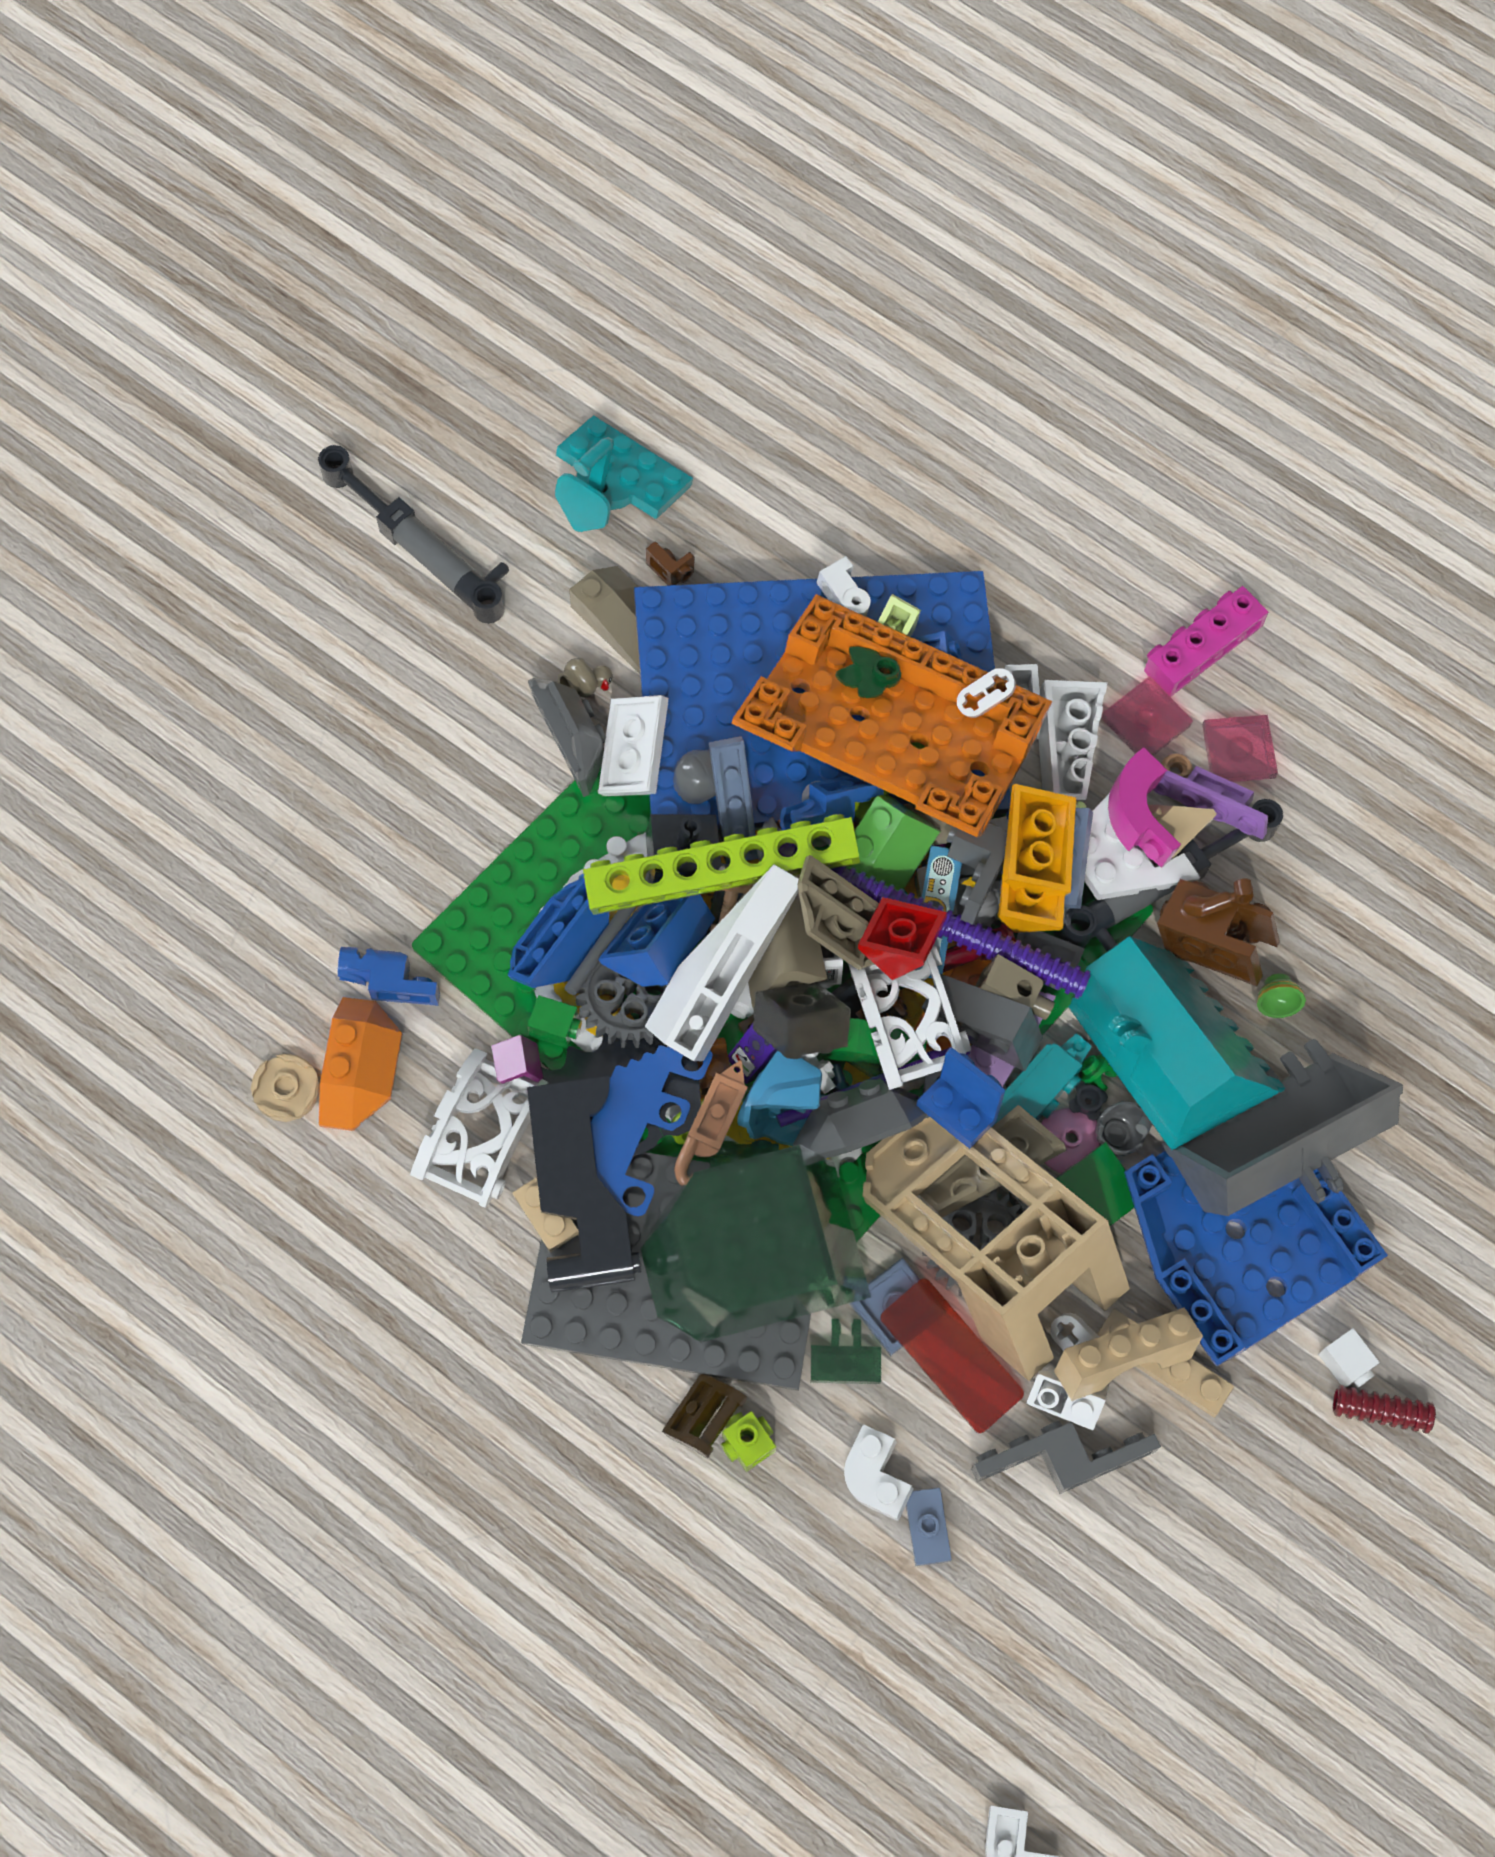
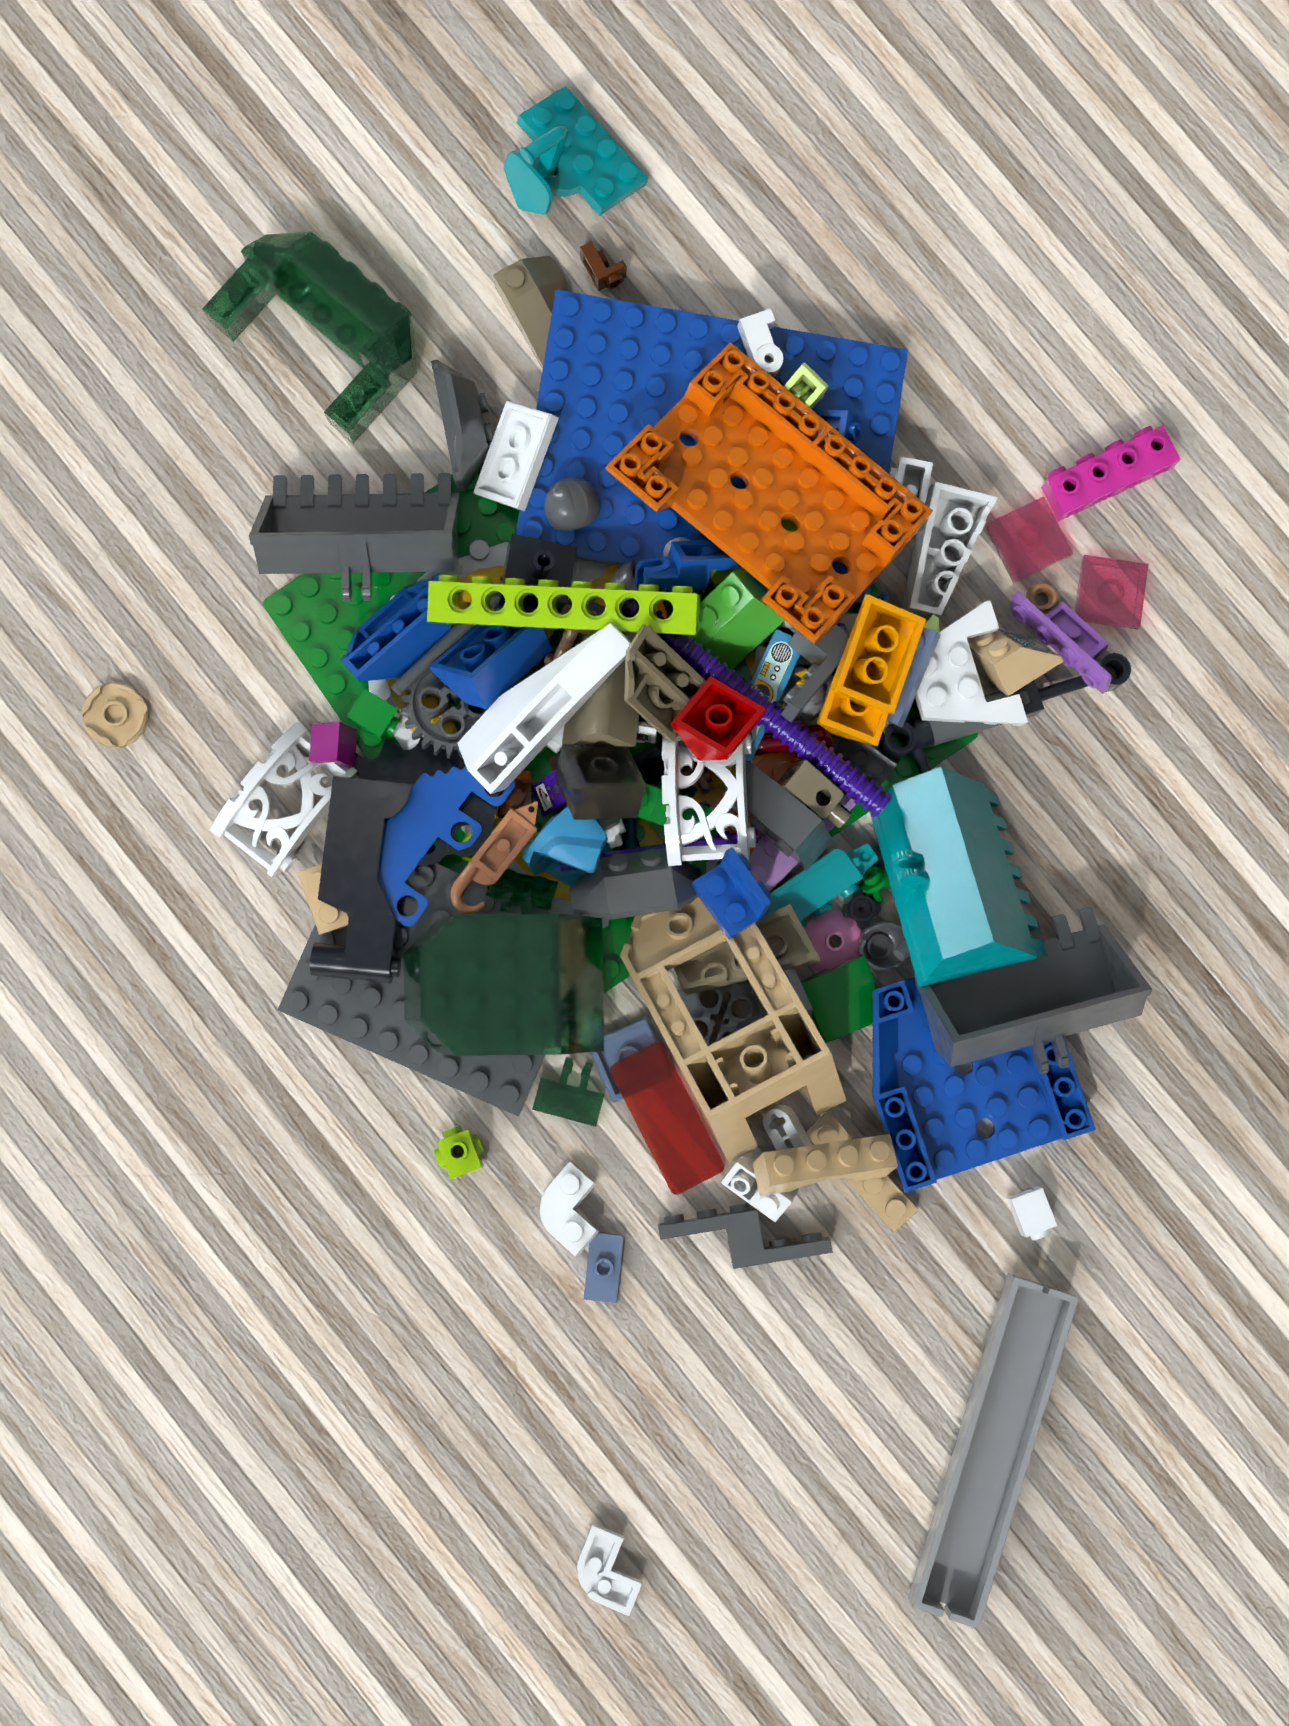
camera: 15 degrees right, 15 degrees up
(357, 1064) = (186, 707): orange wedge -> none
(387, 976) = (230, 627): blue plate -> none
(401, 526) = (360, 184): black piece -> none
(418, 648) = (338, 304): none -> clear green wedge
(495, 850) = (357, 530): none -> dark grey piece
(584, 680) = (484, 370): dark tan animal -> none
(697, 1410) = (420, 1114): dark brown plate -> none
(732, 790) = (596, 532): sand blue tile -> none
(869, 672) = (756, 439): dark green plate -> none
(983, 685) = (870, 497): white beam -> none
(1130, 811) = (977, 638): dark pink arch -> none
(1213, 926) = (1028, 774): reddish brown torso -> none
(1280, 997) = (1073, 852): bright green piece -> none
(1384, 1409) = (1050, 1265): dark red piece -> none
(1386, 1616) = (992, 1450): none -> light grey piece

